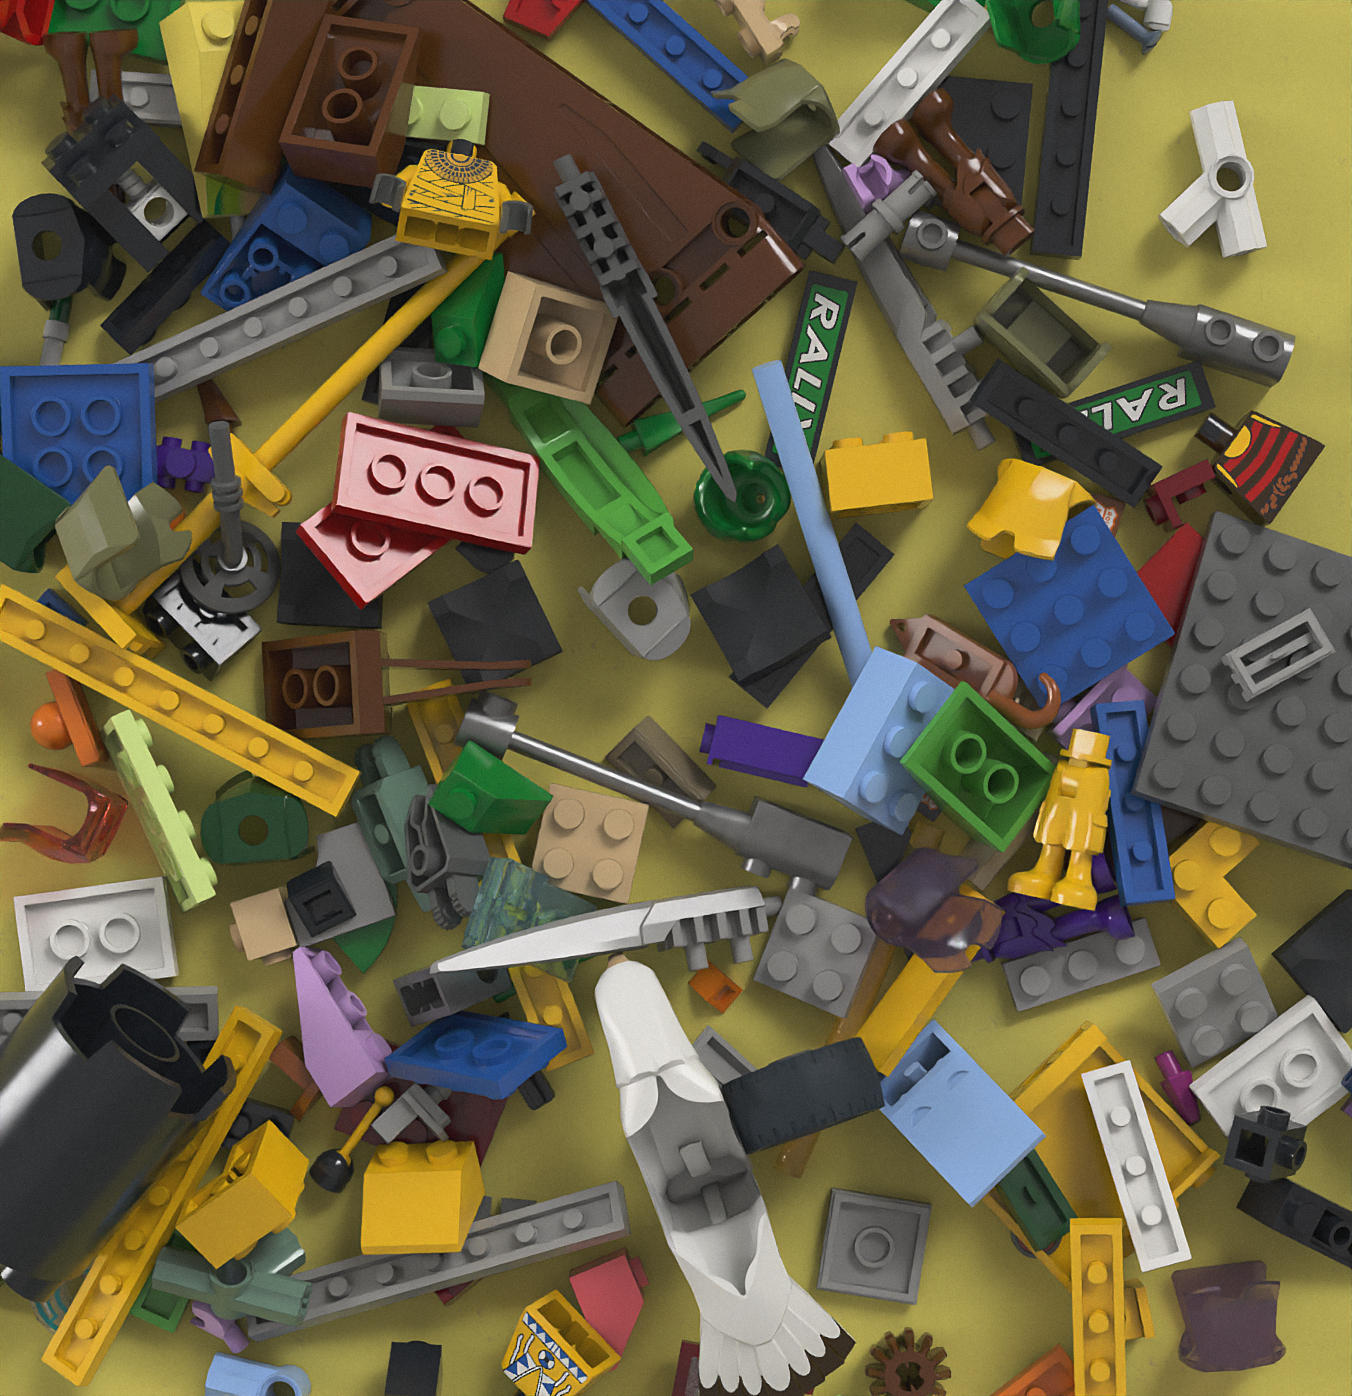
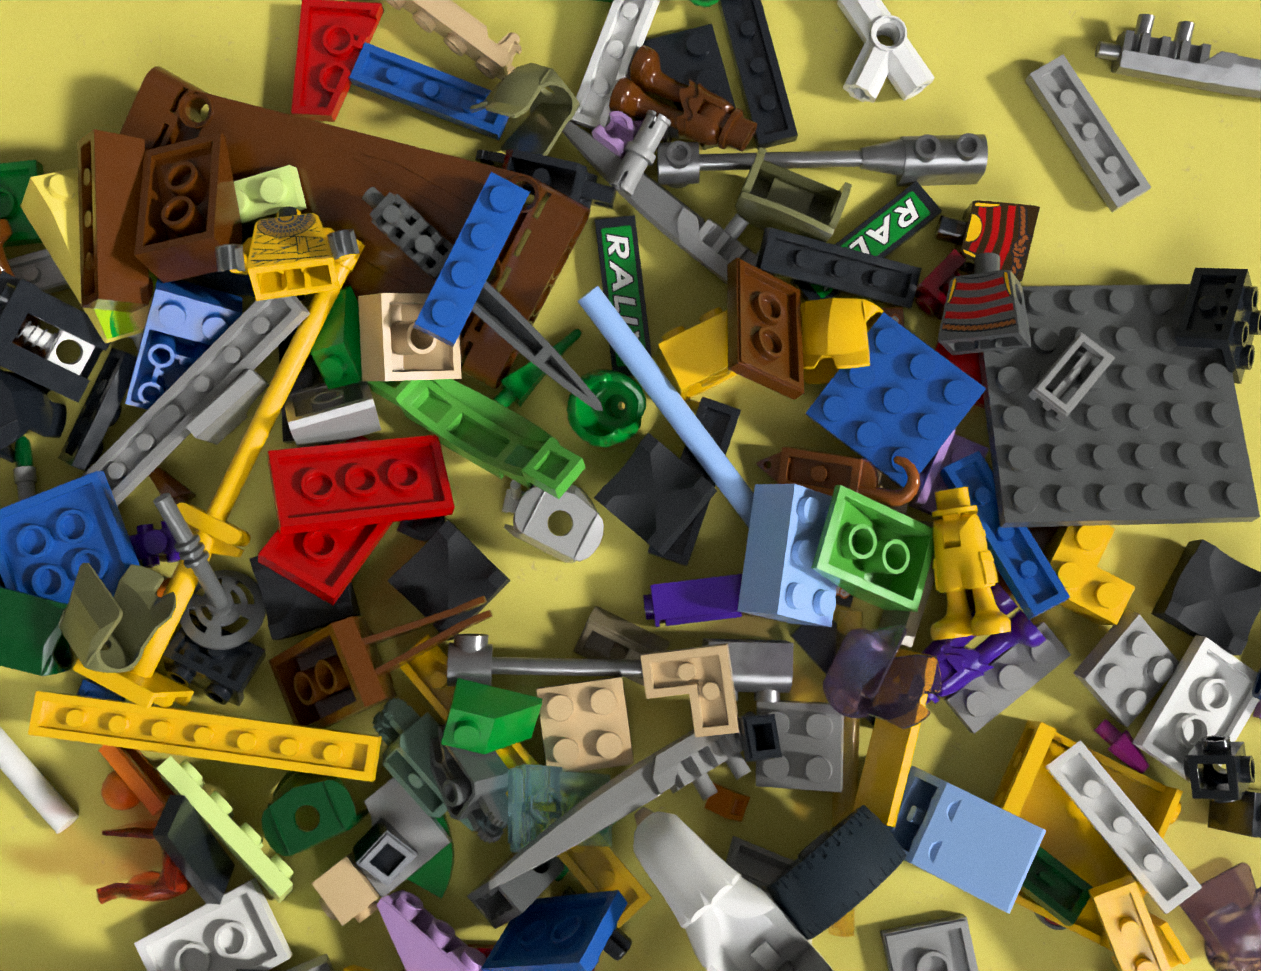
camera: 25 degrees left, 5 degrees down
(119, 819) = (194, 849): none -> black tile
(317, 342) = (228, 408): none -> light grey tile
(599, 561) = (512, 497): none -> white hand
(651, 281) = (471, 259): none -> blue plate
(741, 838) = (702, 674): none -> tan plate
(776, 926) = (760, 737): none -> black slope
(951, 475) = (764, 329): none -> reddish brown tile
(1210, 544) = (984, 310): none -> dark grey torso

